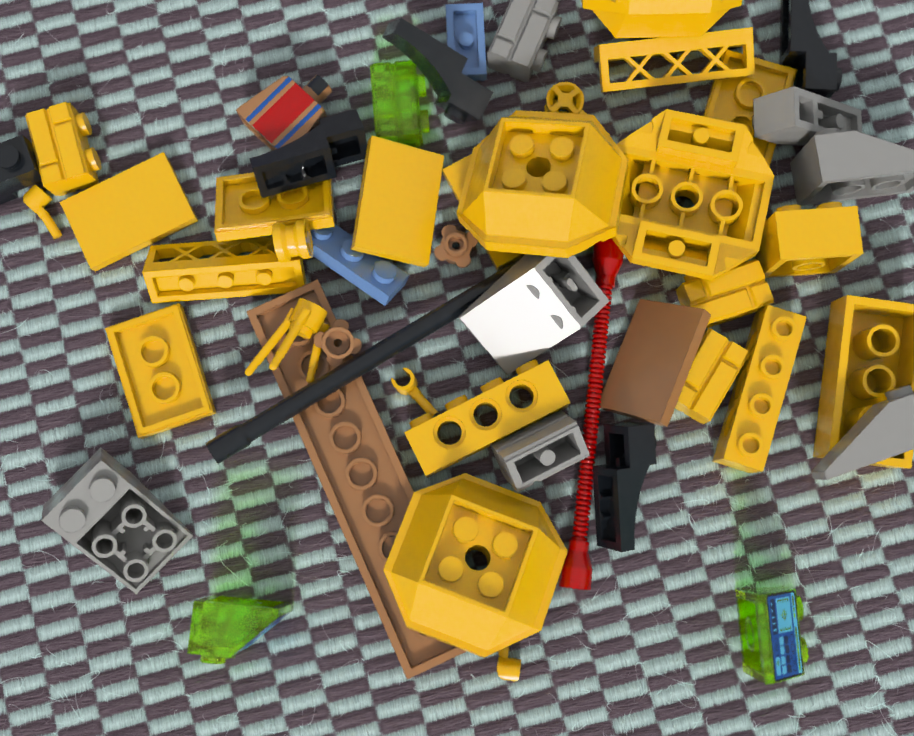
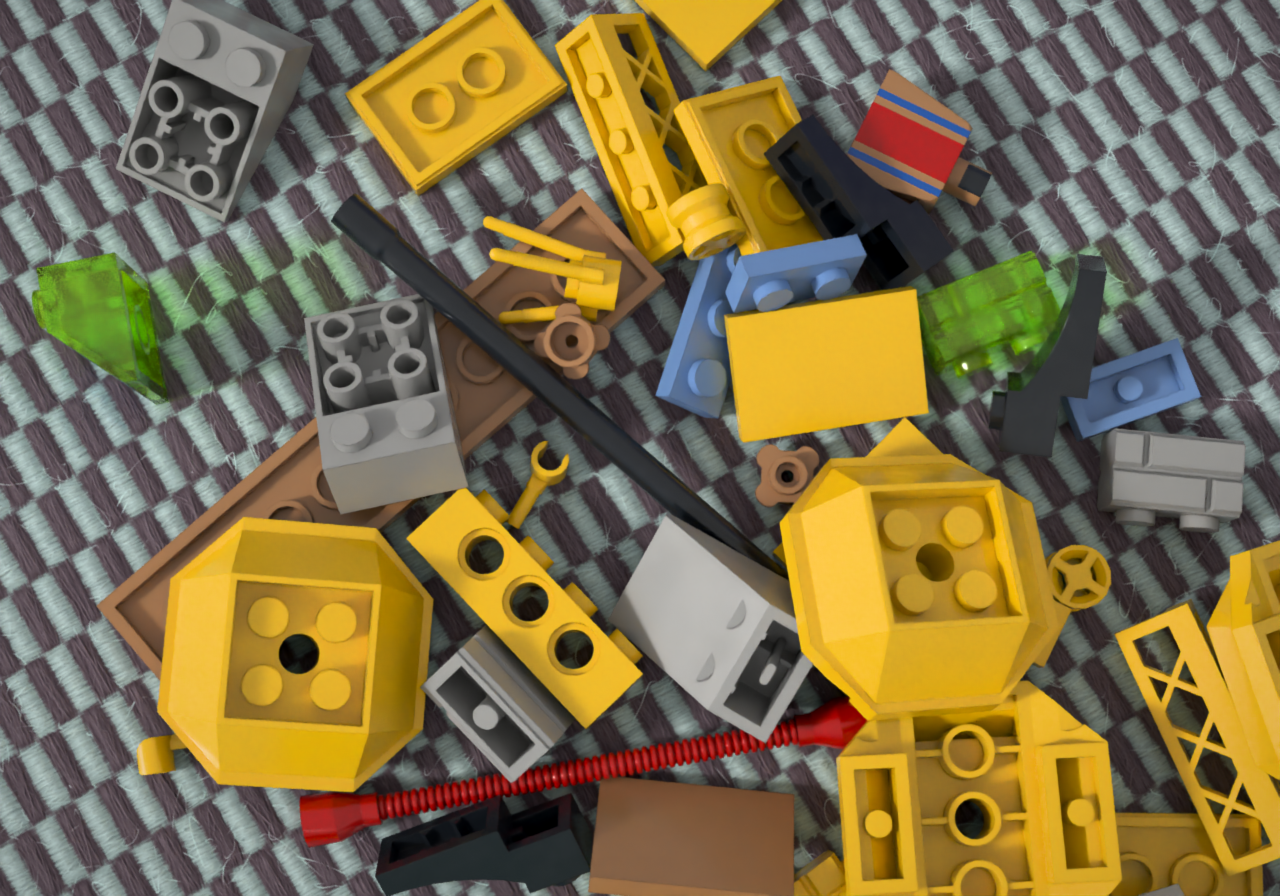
camera: 65 degrees right, 0 degrees up
(339, 464) = (383, 404): none -> light grey slope
(340, 198) = (795, 274): none -> medium blue plate

